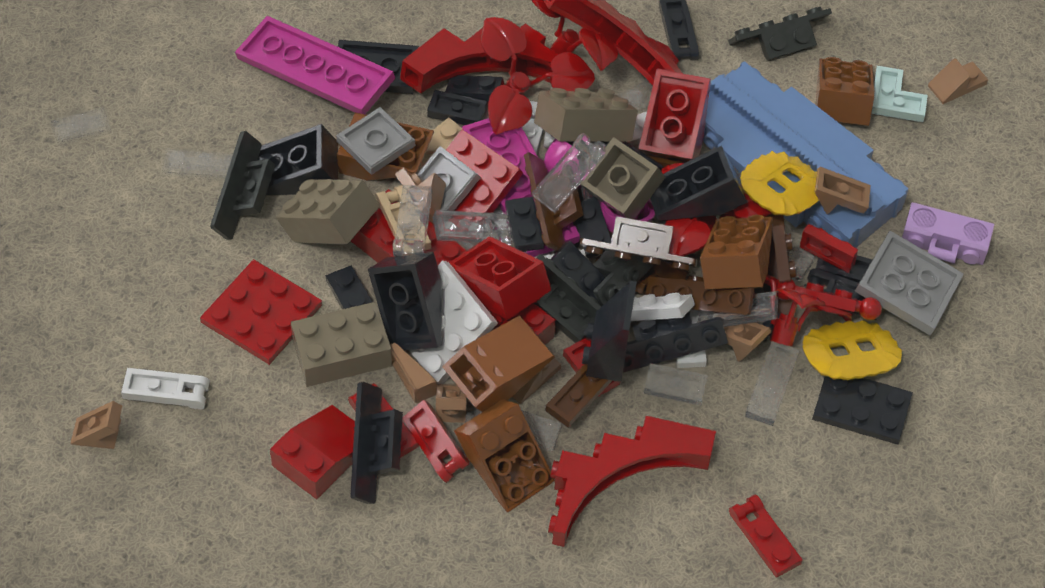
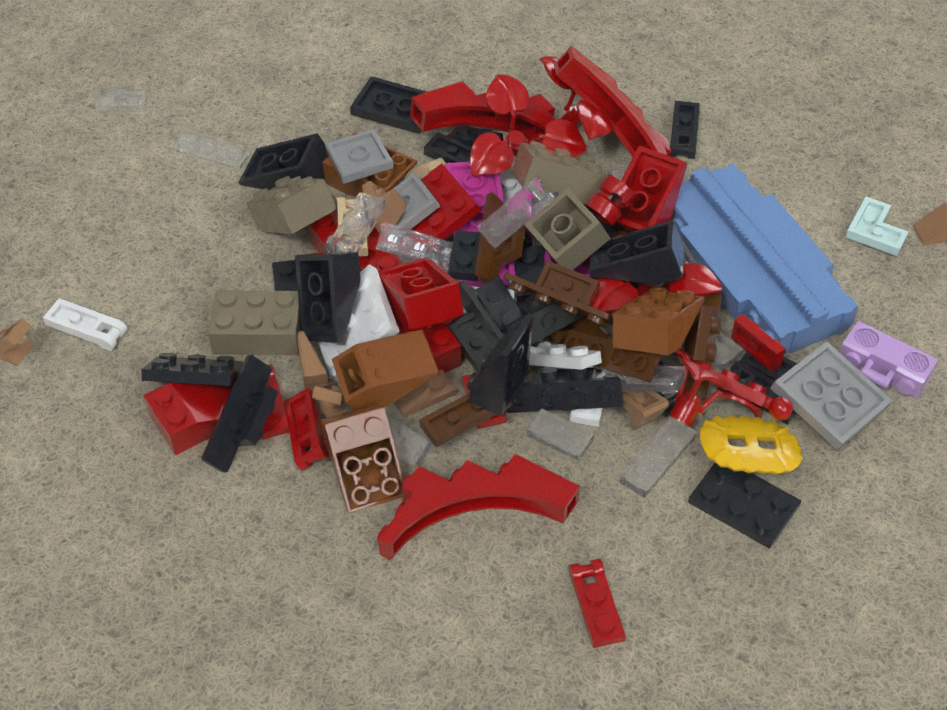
camera: 20 degrees right, 5 degrees down
(243, 186) = (230, 172): pearl dark grey bracket -> none
(259, 311) = (193, 276): red plate -> none
(302, 410) = (192, 370): none -> black plate
(315, 65) = (339, 90): dark pink plate -> none
(646, 133) = (603, 207): none -> red wheel
(770, 167) = (735, 285): yellow piece -> none
(784, 37) = (783, 155): pearl dark grey bracket -> none
(841, 190) = (777, 285): medium nougat slope -> none
(845, 90) = (826, 211): dark orange slope -> none

